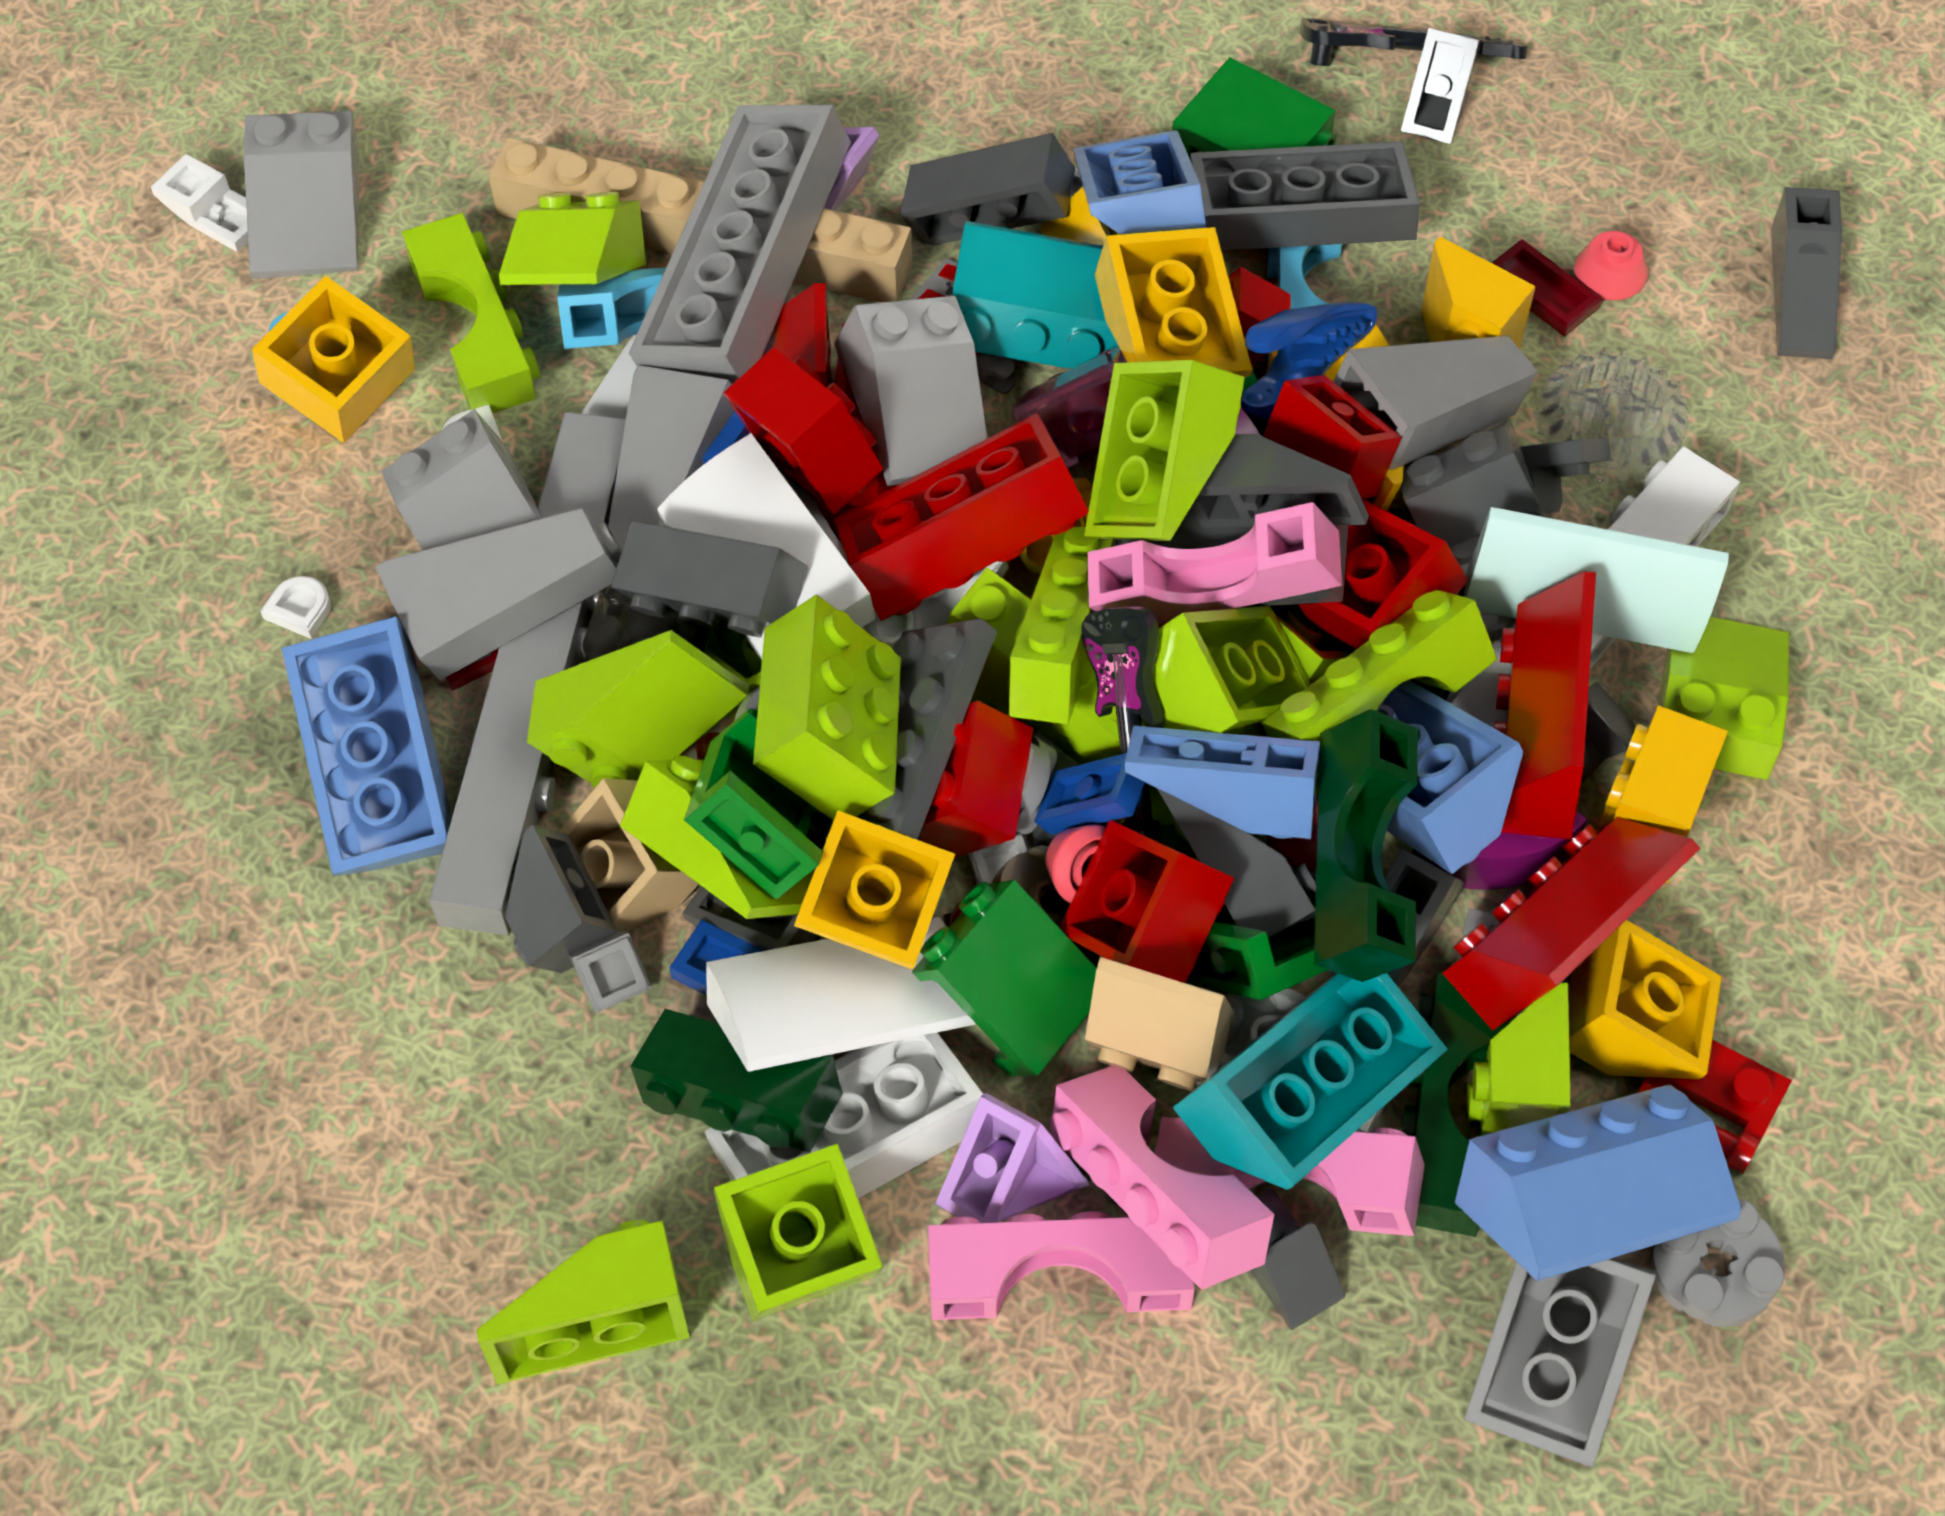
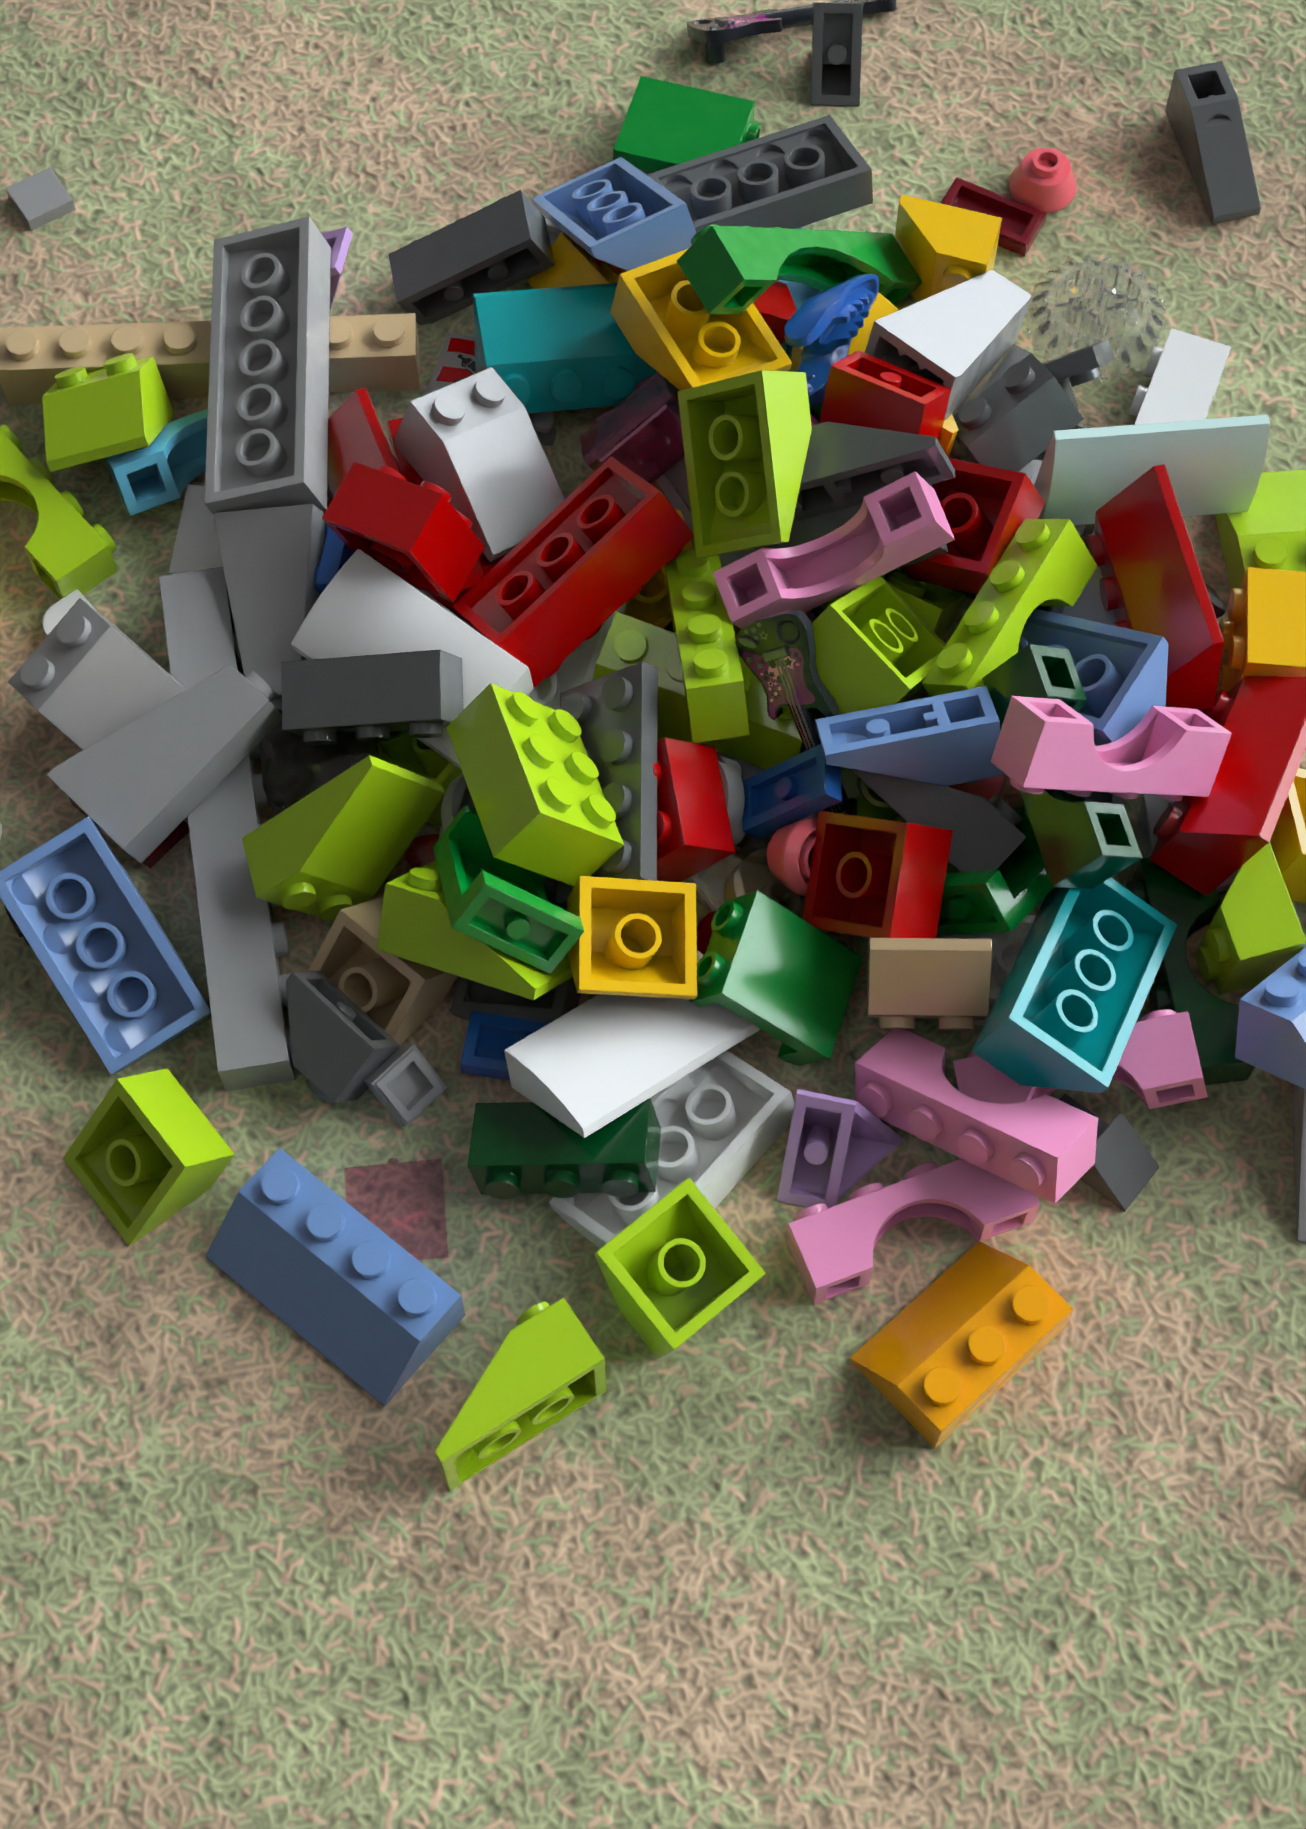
camera: 20 degrees left, 5 degrees up
(336, 959) = (146, 1153): none -> lime slope
(465, 1137) = (334, 1277): none -> medium blue slope
(554, 1095) = (403, 1203): none -> clear pink piece
(604, 29) = (40, 198): none -> light grey tile
(1067, 1406) = (962, 1340): none -> light orange slope
(1220, 254) = (739, 263): none -> green arch
(1484, 865) = (1054, 748): none -> bright pink arch

